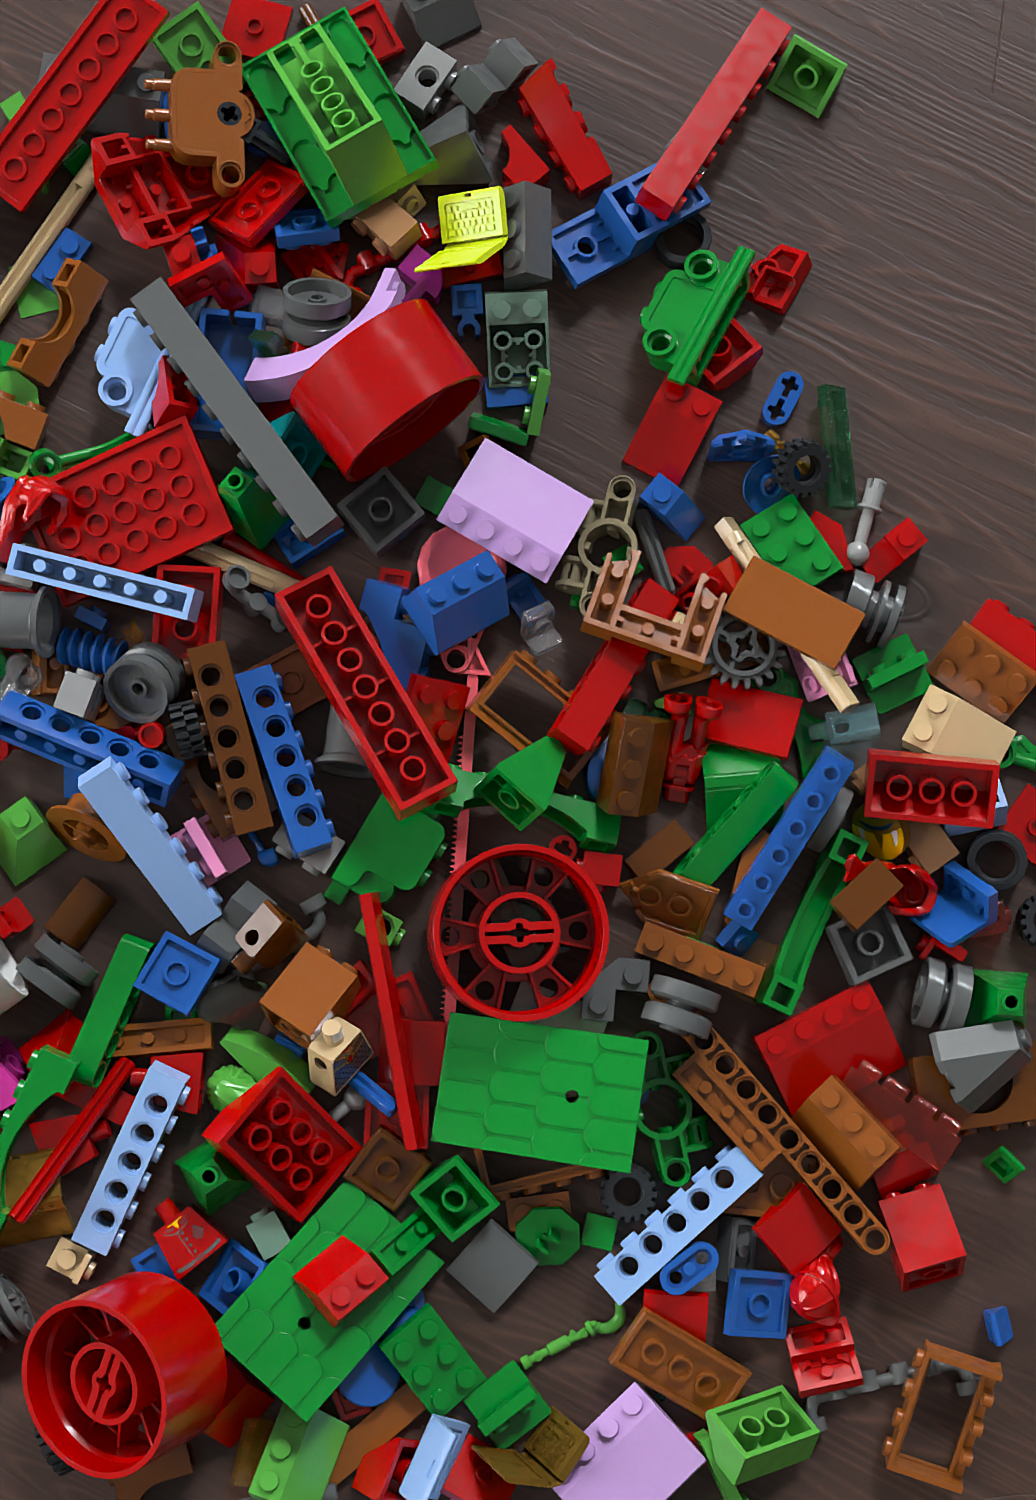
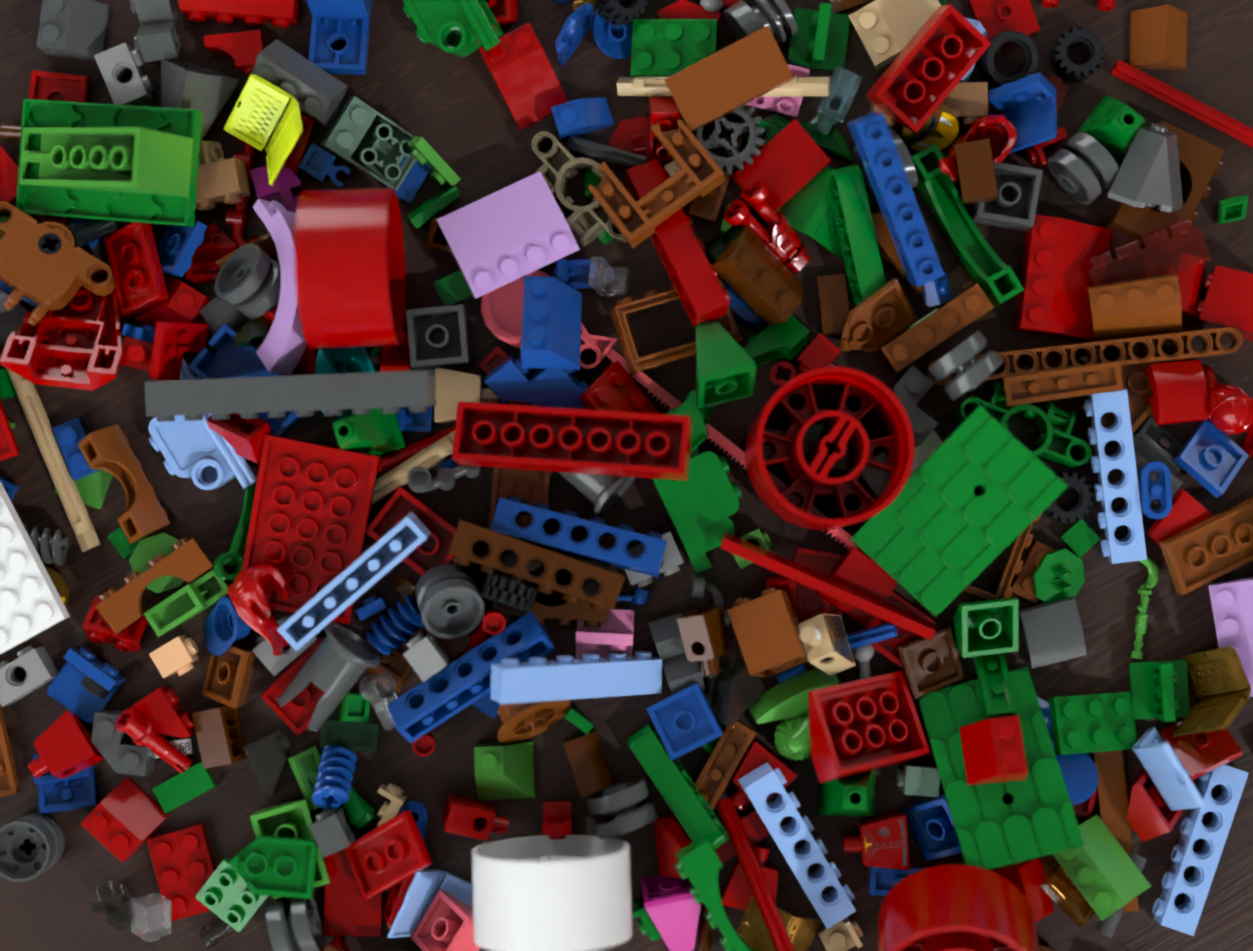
camera: 50 degrees left, 5 degrees up
(115, 877) = (579, 720): none -> green tile
(336, 487) = (396, 357): none -> red bracket
(347, 561) = (455, 387): none -> tan torso

